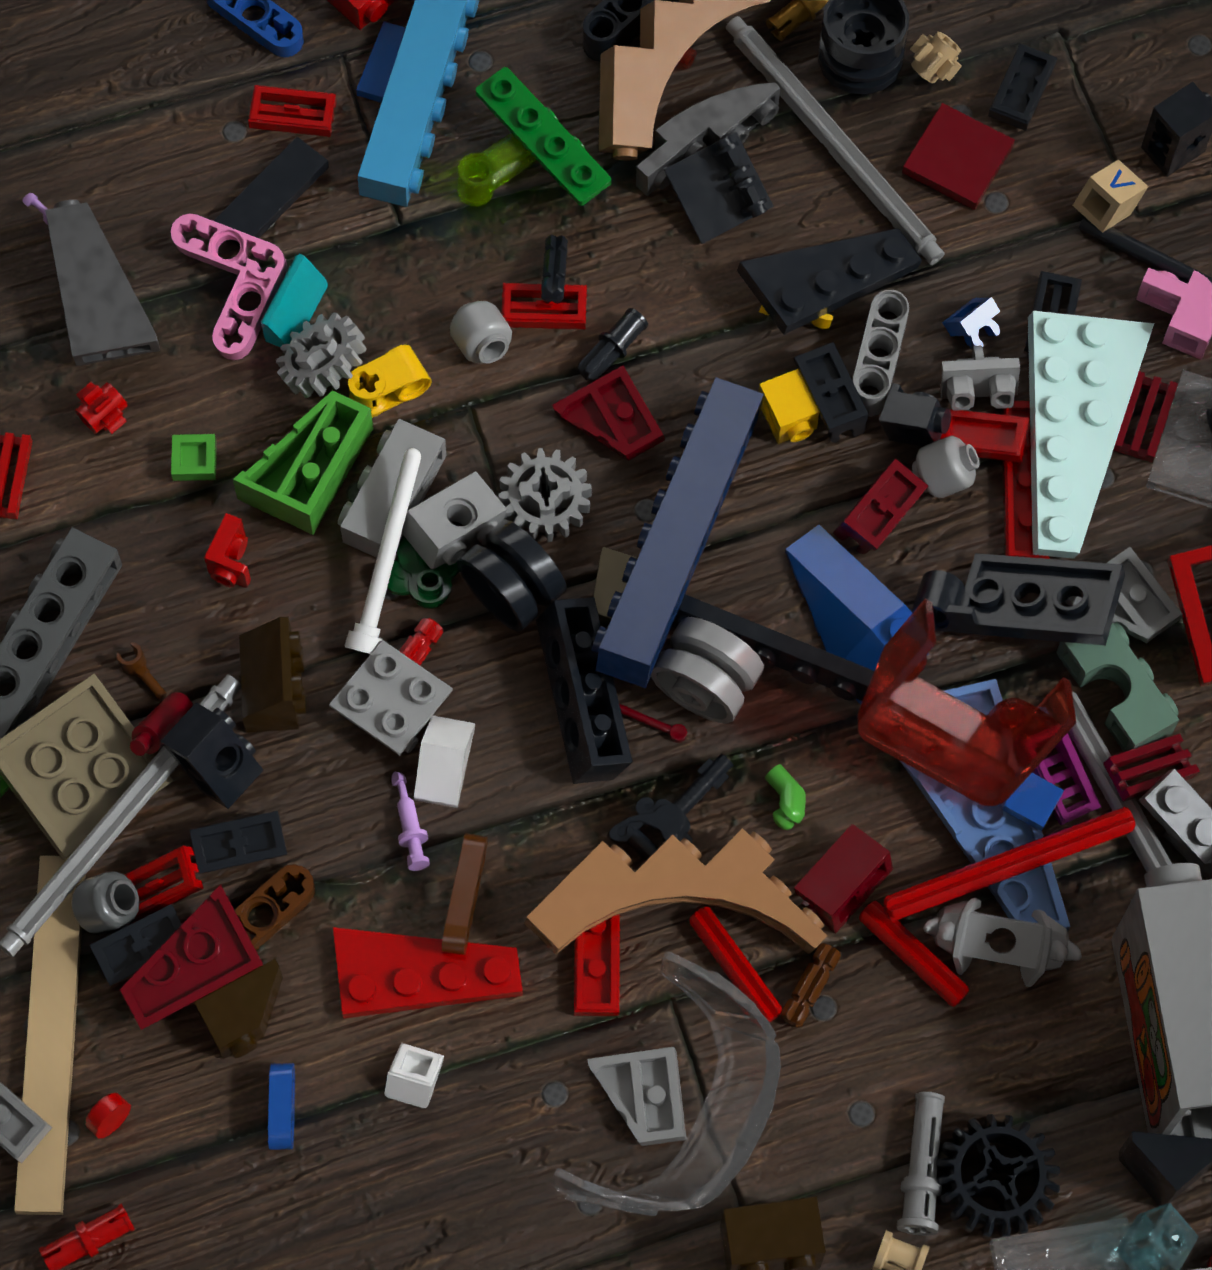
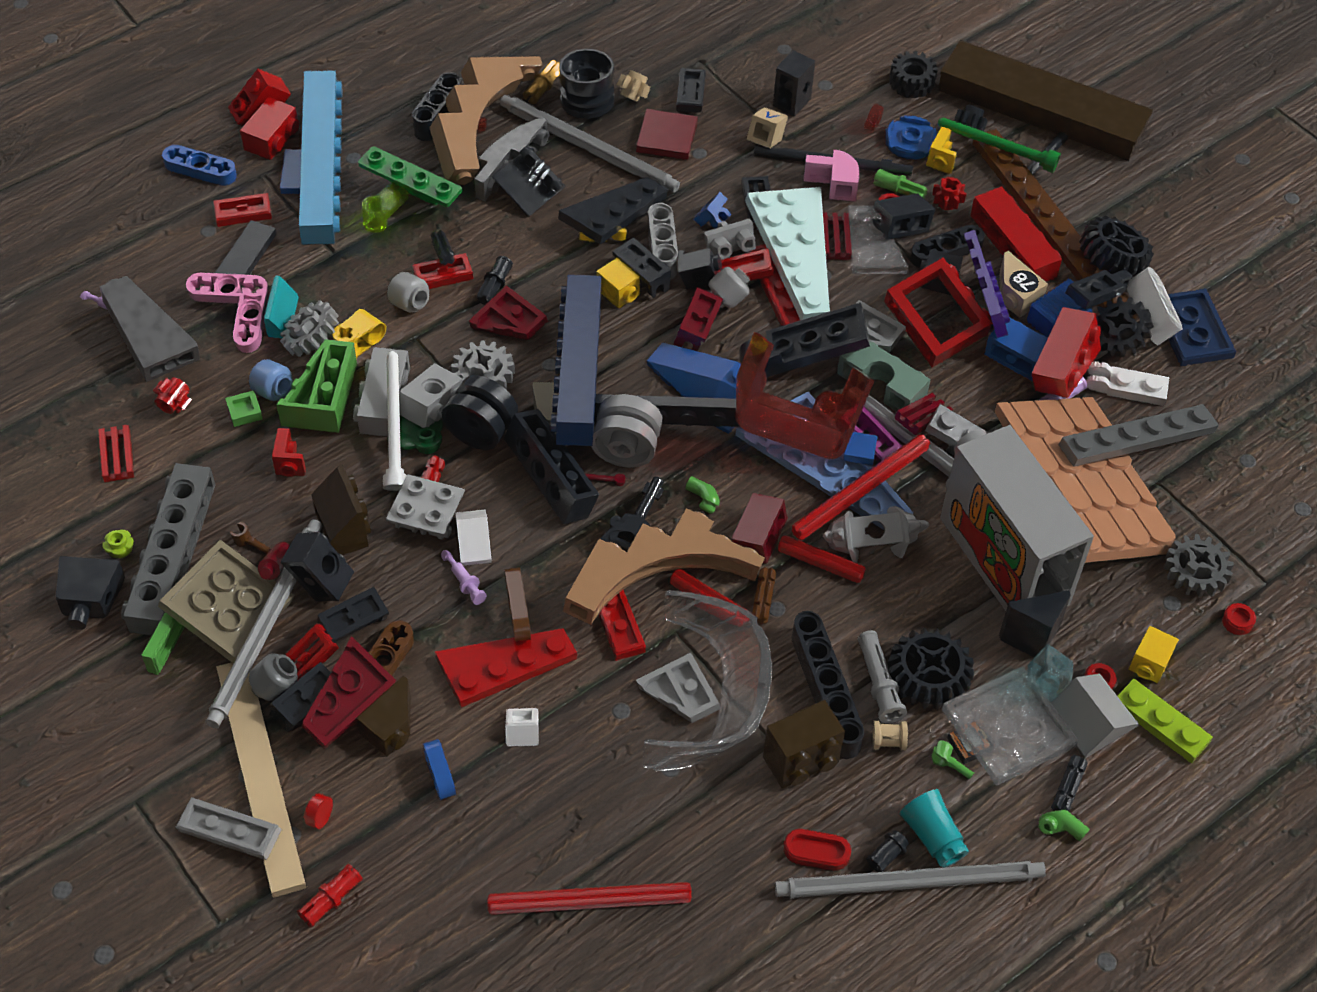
camera: 20 degrees left, 15 degrees down
(243, 423) = (270, 380): none -> medium blue head
(851, 1131) = (826, 670): none -> black beam

